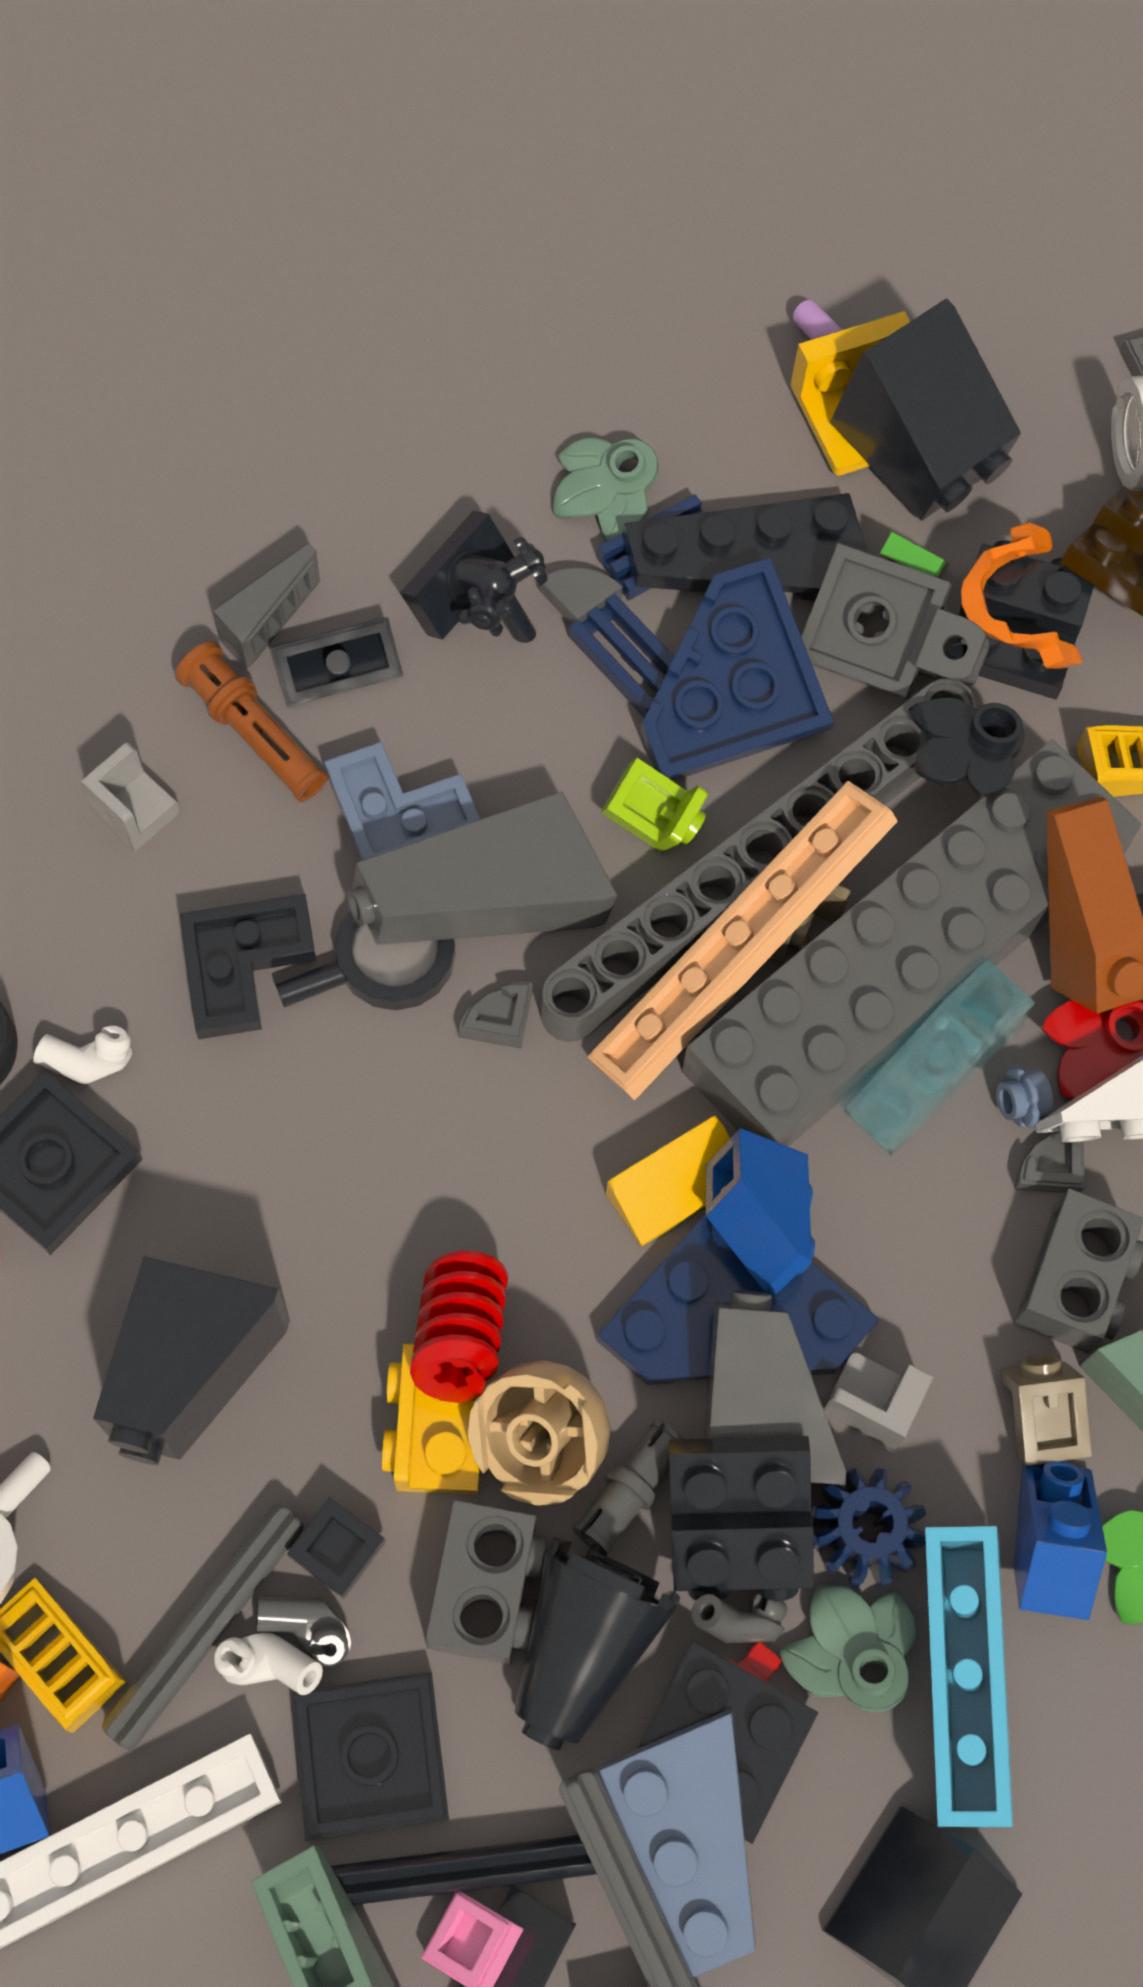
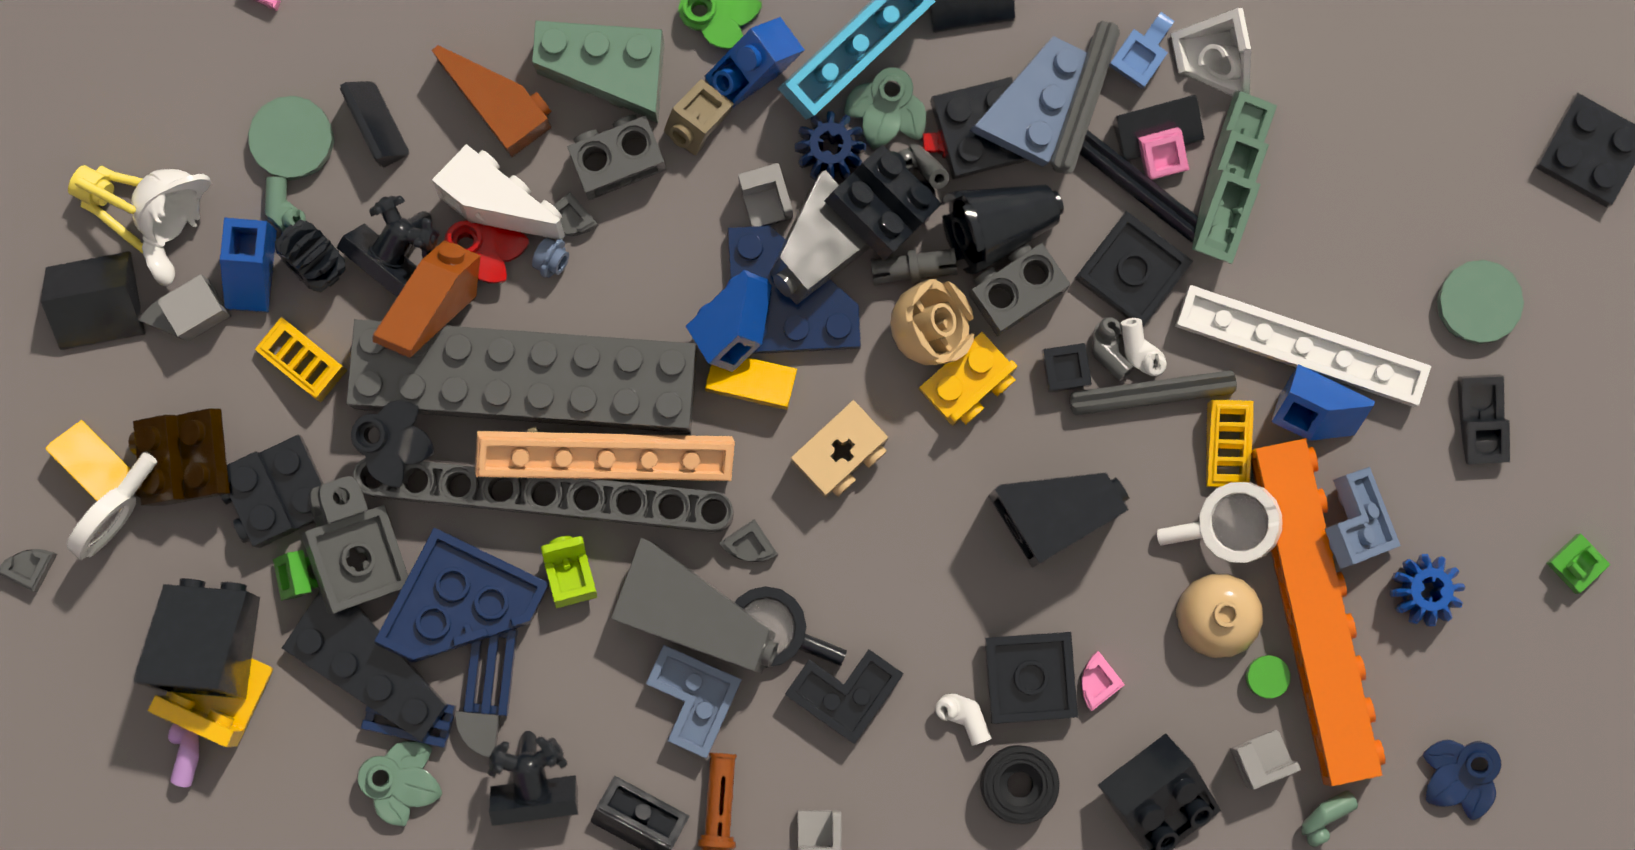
camera: 135 degrees left, 15 degrees up
(459, 1326) = (924, 407): red piece -> none
(507, 1159) = (850, 427): none -> tan brick
(940, 1056) = (572, 311): clear light blue slope -> none
(1026, 540) = (288, 451): orange helmet -> none

